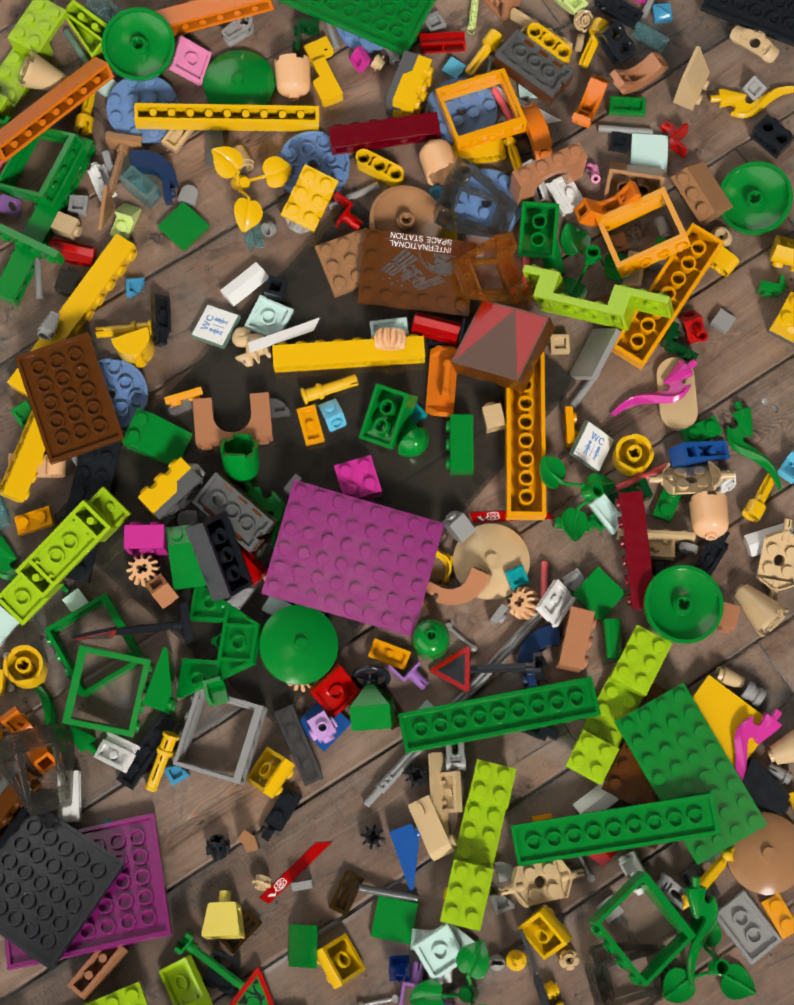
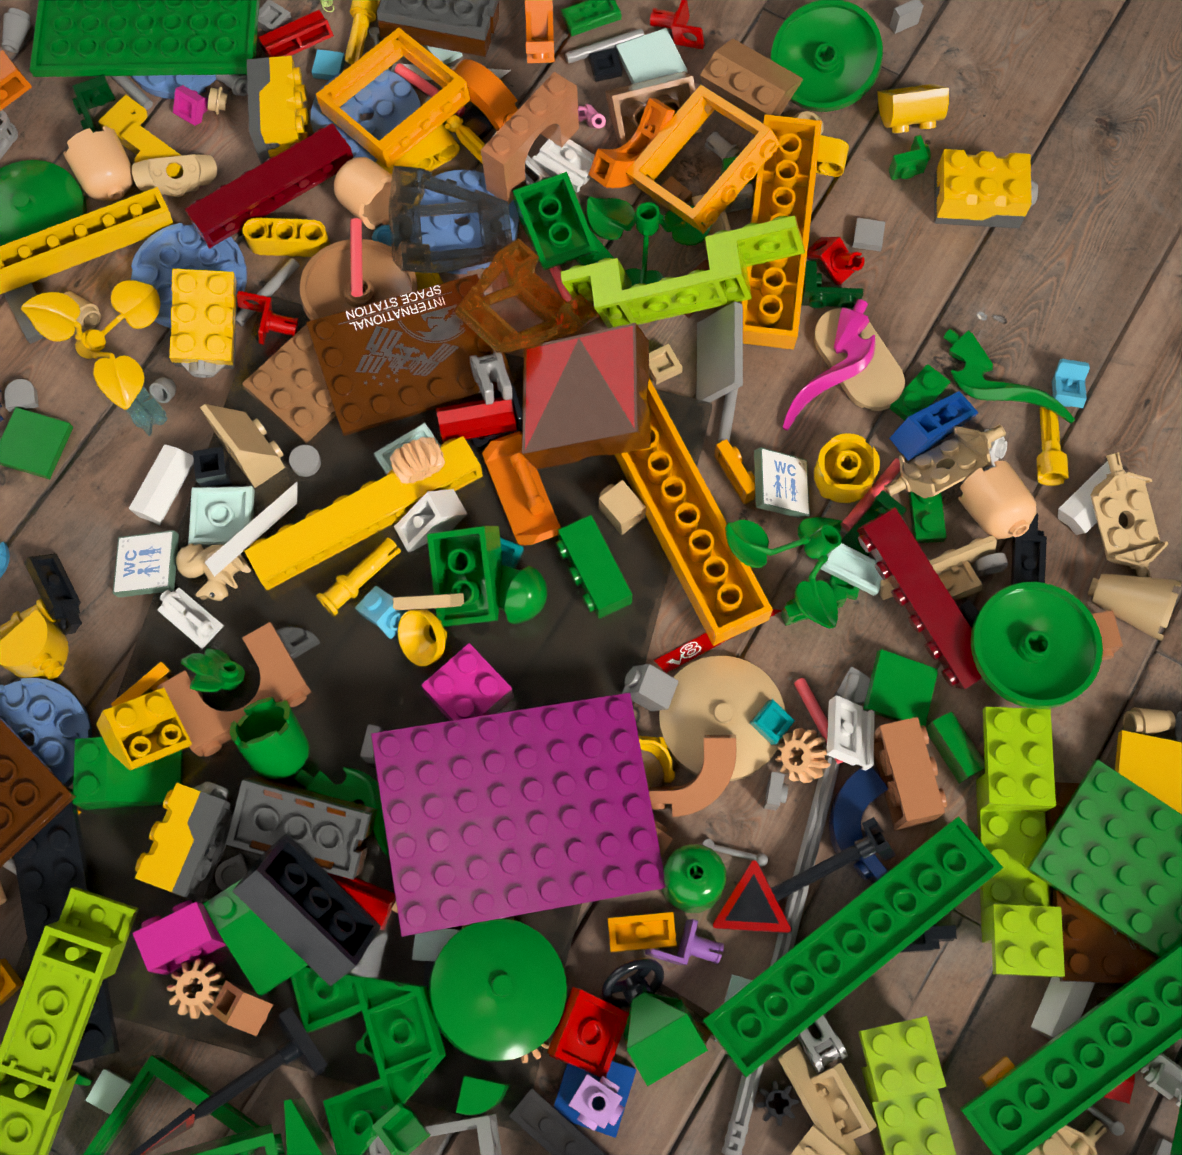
camera: 25 degrees left, 5 degrees down
(175, 420) = (143, 729): none -> yellow slope
(226, 368) = (189, 617): none -> white hinge
(226, 404) = (213, 671): none -> green plate
(264, 694) = (480, 1095): none -> green brick
(301, 283) = (245, 443): none -> tan slope
(310, 425) = (357, 642): light orange plate -> none
(319, 96) = (197, 171): none -> tan piece
(329, 307) = (305, 460): none -> light grey tile
(343, 439) = (416, 640): none -> yellow piece
(359, 421) = (428, 601): none -> tan tile
(384, 373) = (431, 514): none -> white slope
(412, 202) = (356, 257): none -> coral bar
(455, 303) = (489, 369): none -> light grey piece

